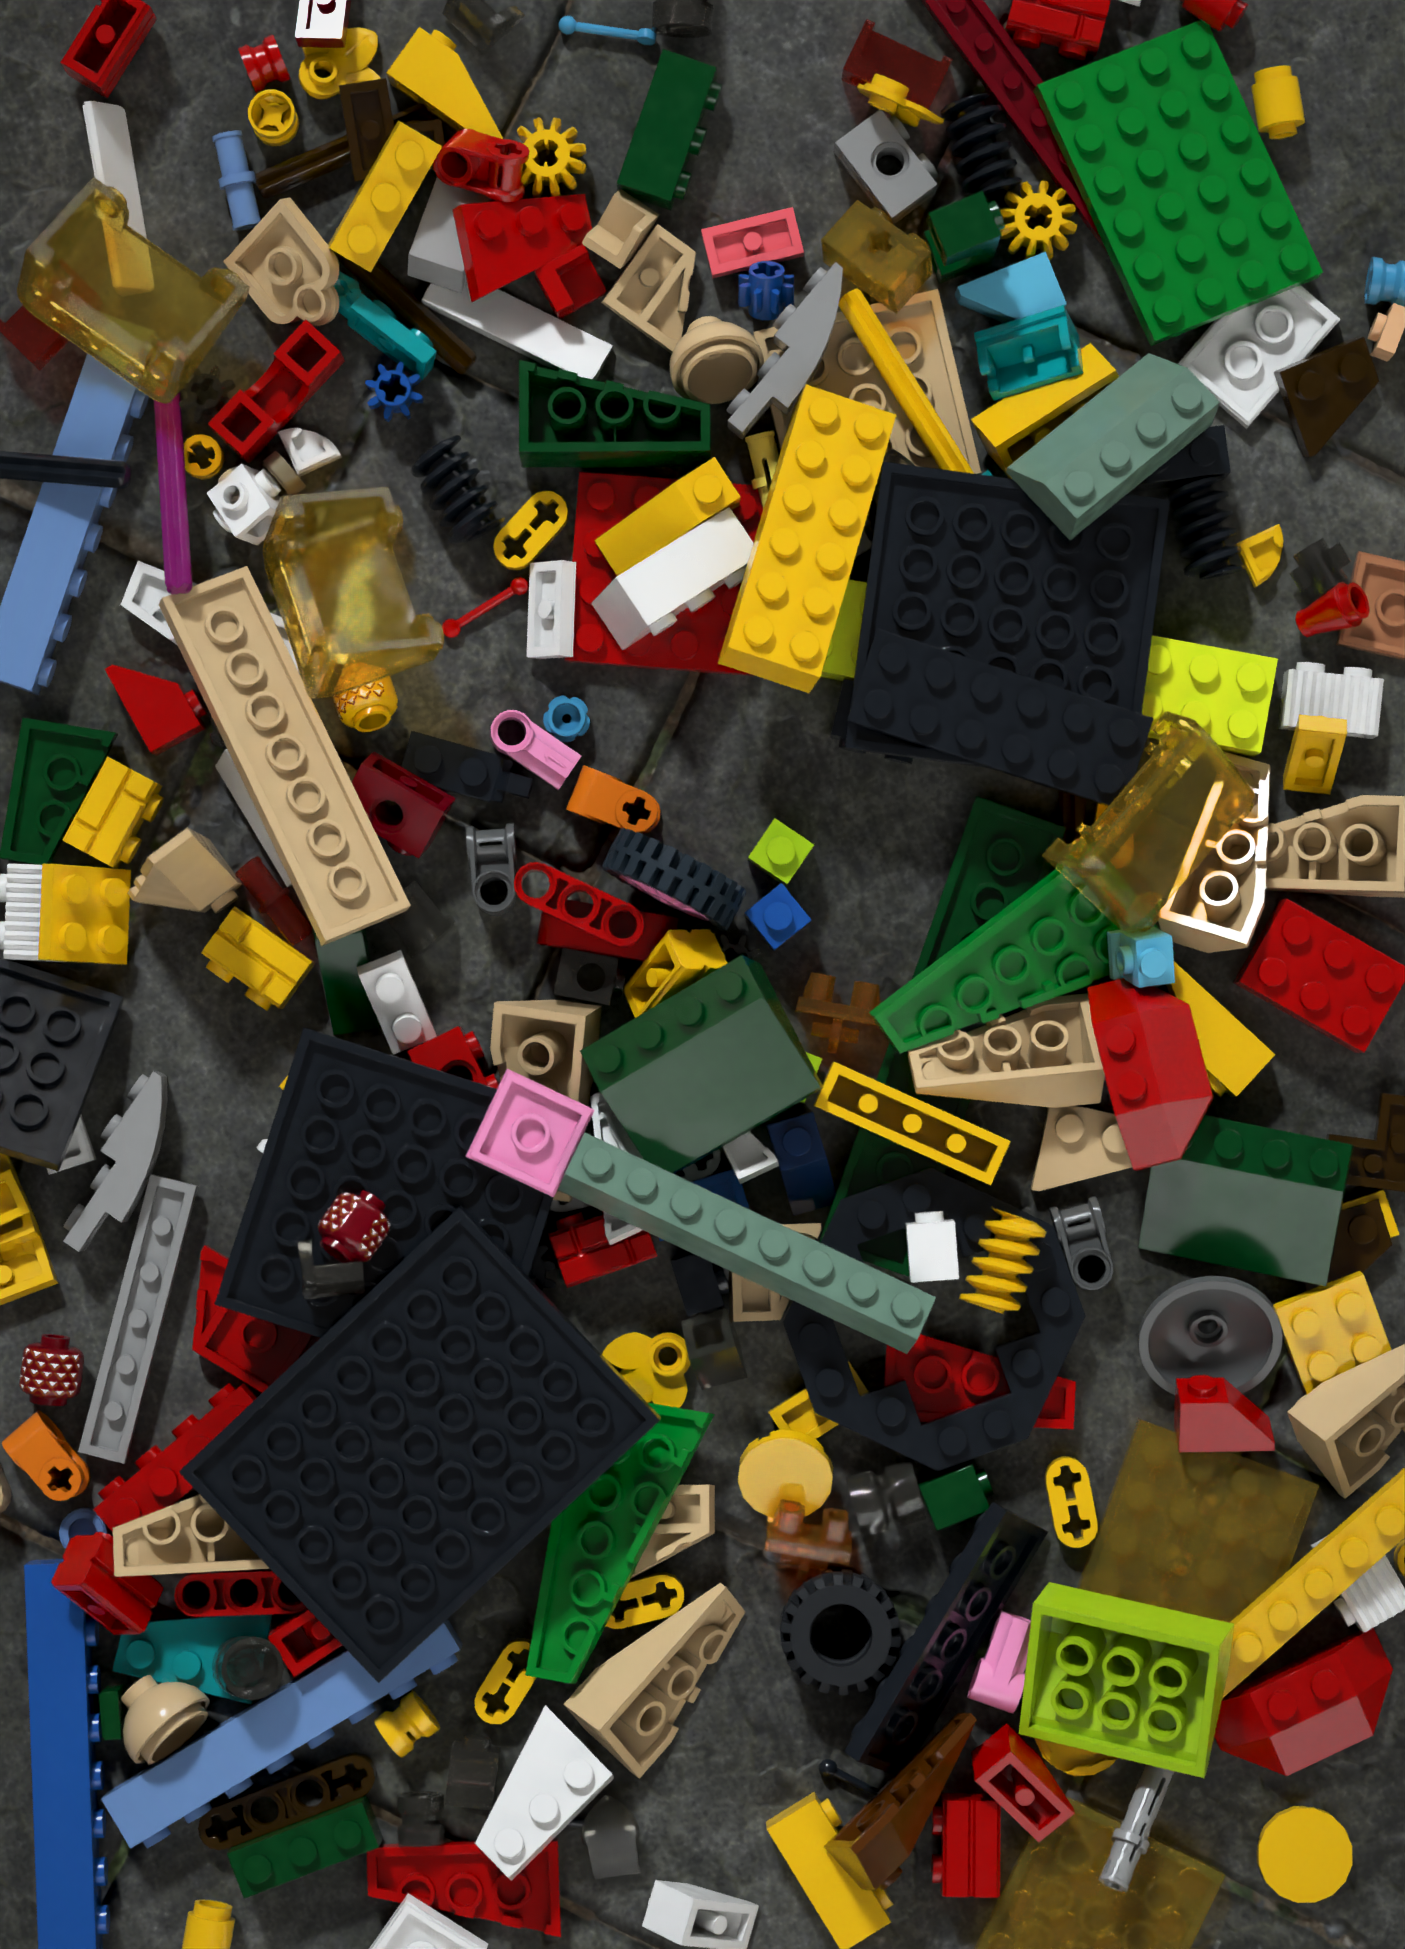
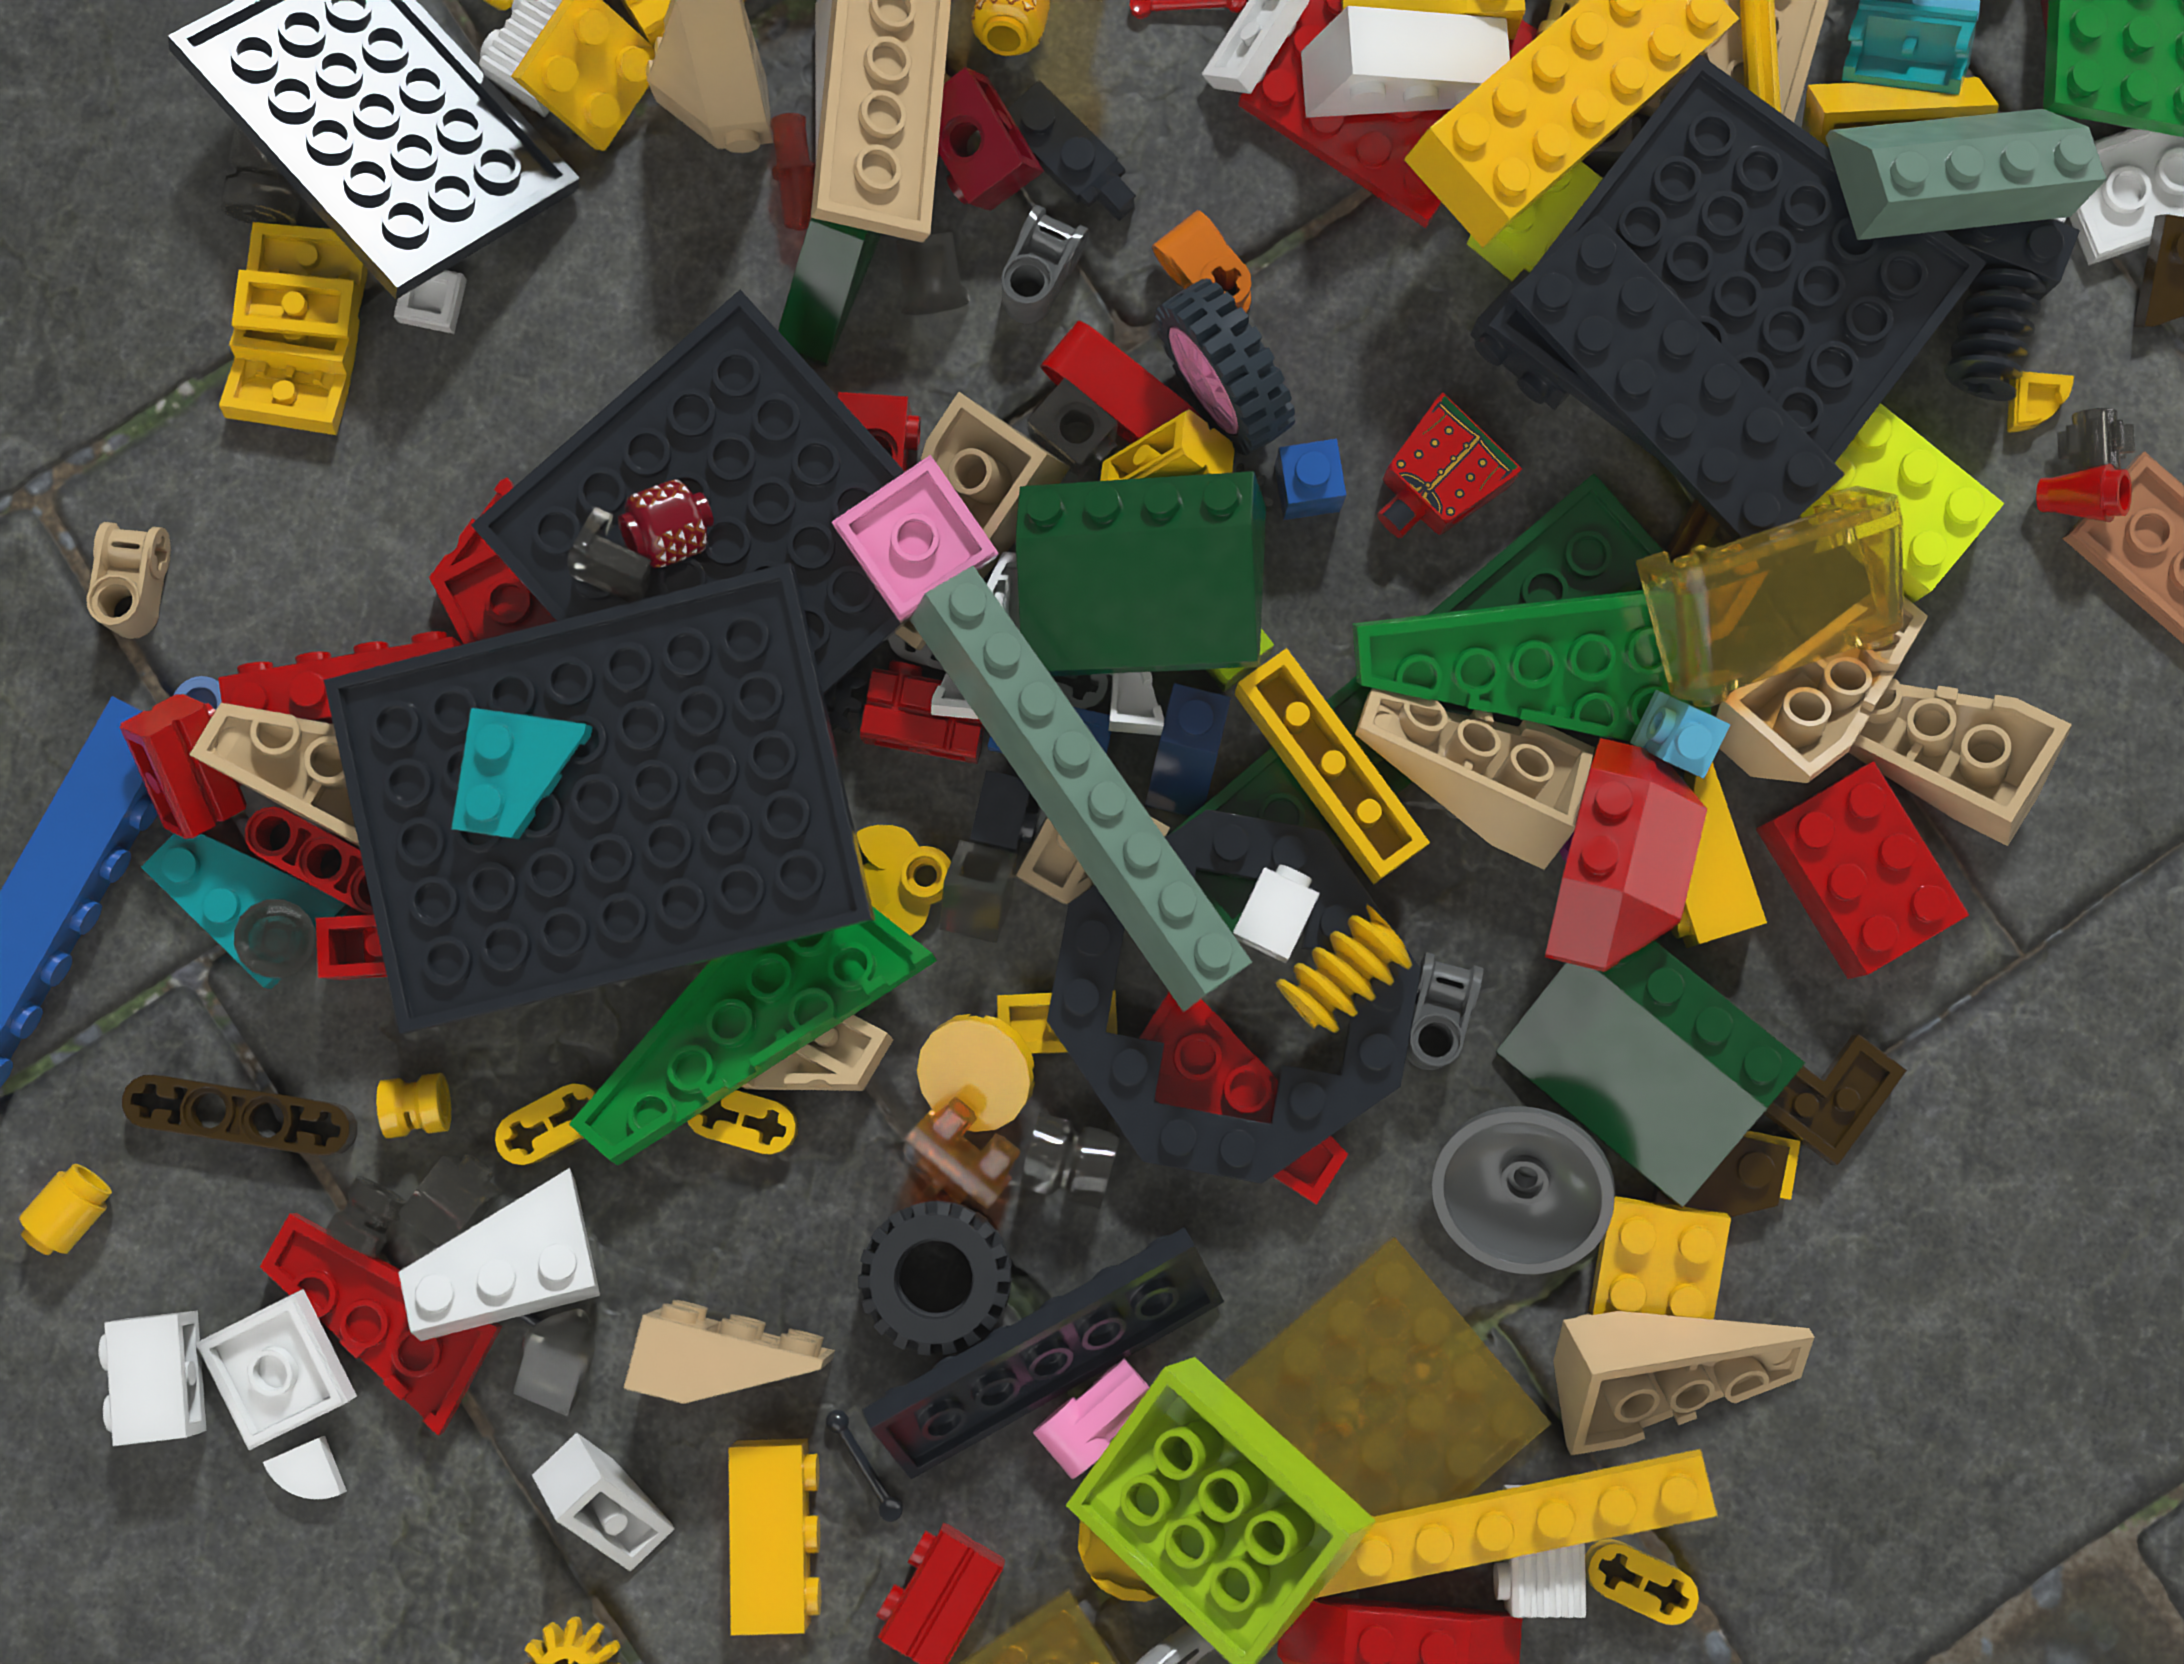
camera: 30 degrees right, 5 degrees down
(42, 1451) = (210, 595): orange piece -> none
(51, 1370) = (269, 514): dark red head -> none
(112, 1712) = (113, 911): dark green tile -> none
(135, 1146) = (498, 338): light grey slope -> none
(138, 1318) = (393, 516): light grey plate -> none
(161, 1718) = (155, 945): tan piece -> none
(257, 959) = (741, 216): yellow brick -> none
(264, 1738) = (259, 1029): medium blue brick -> none
(305, 1847) = (225, 1173): dark green brick -> none
(350, 1460) = (510, 768): none -> teal wing
(396, 1002) = (858, 337): white plate -> none
(538, 751) = (1156, 166): bright pink piece -> none
(555, 901) = (1102, 311): red beam -> none
(566, 731) = (1206, 143): dark azure plate -> none
(642, 1689) = (689, 1215): tan wedge -> none
(712, 1780) = (694, 1357): none -> tan slope
(780, 852) = (1352, 412): lime brick -> none
(818, 999) = (1301, 595): clear orange hips -> none
(869, 856) = (1444, 472): none -> red torso
(891, 1822) = (868, 1520): reddish brown wedge -> none
(955, 1494) = (1148, 1202): dark green brick -> none
(1020, 1783) = (1036, 1561): red slope -> none
(1078, 1146) = (1495, 906): tan wing -> none
(1082, 1499) = (1281, 1289): yellow beam -> none
(1218, 1418) = (1481, 1283): red slope -> none
(1314, 754) = (1986, 628): yellow plate -> none
(1332, 695) = (2030, 589): white brick -> none

